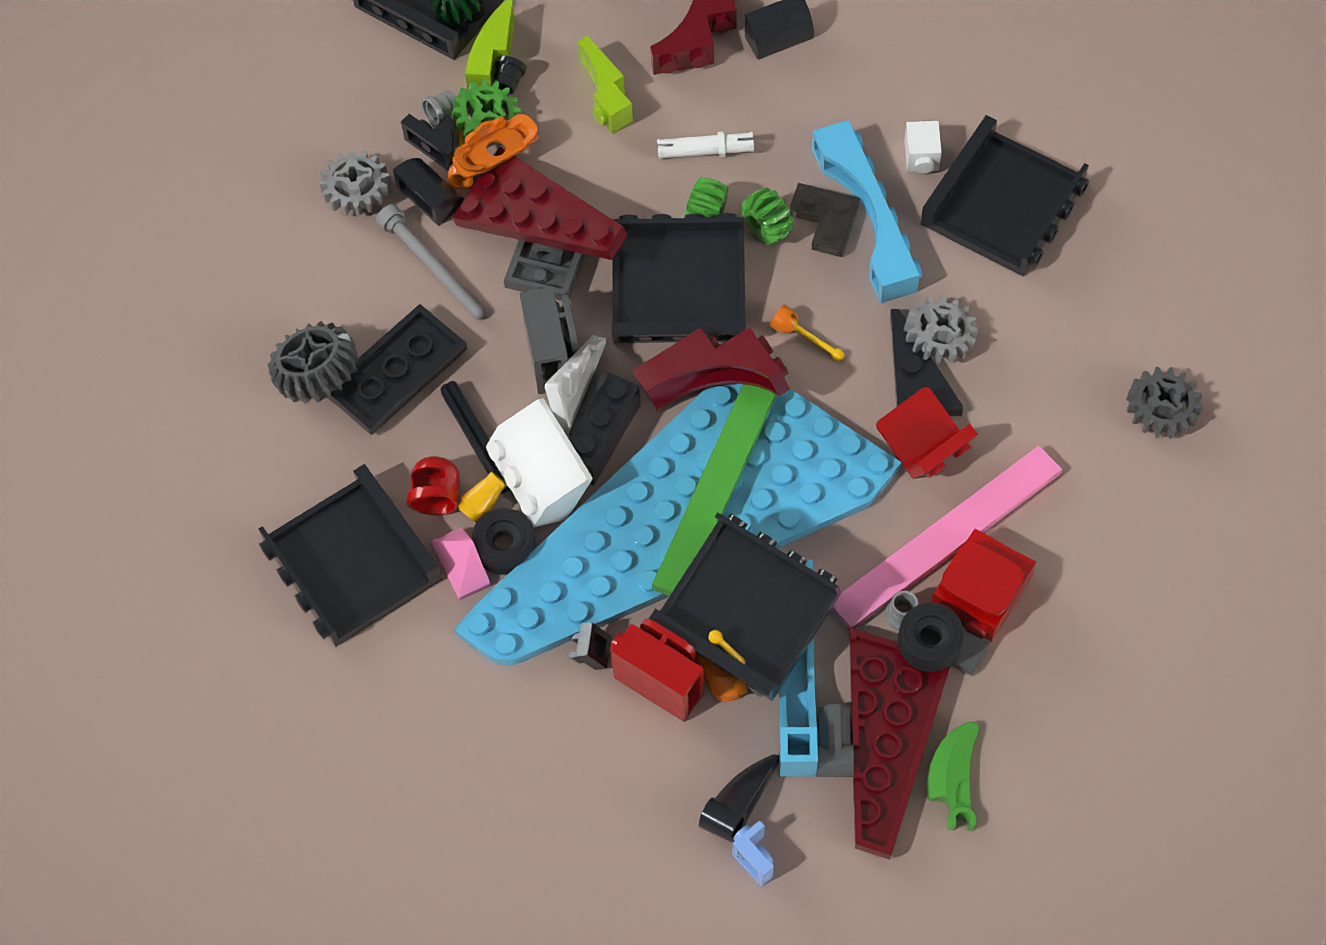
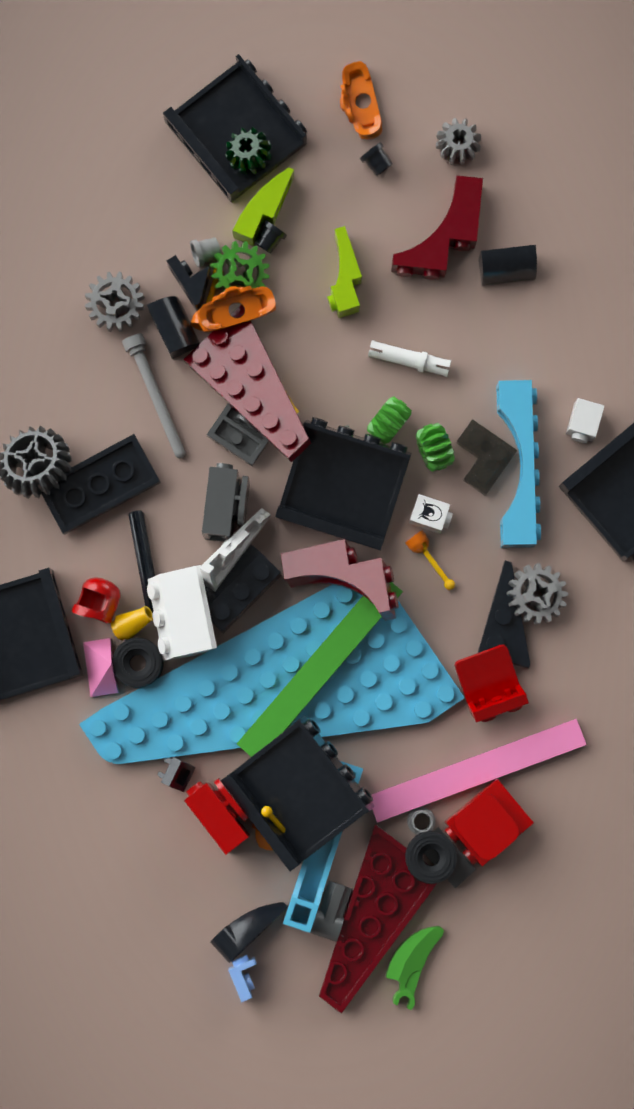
camera: 15 degrees right, 20 degrees up
(788, 286) = (430, 514): none -> white brick

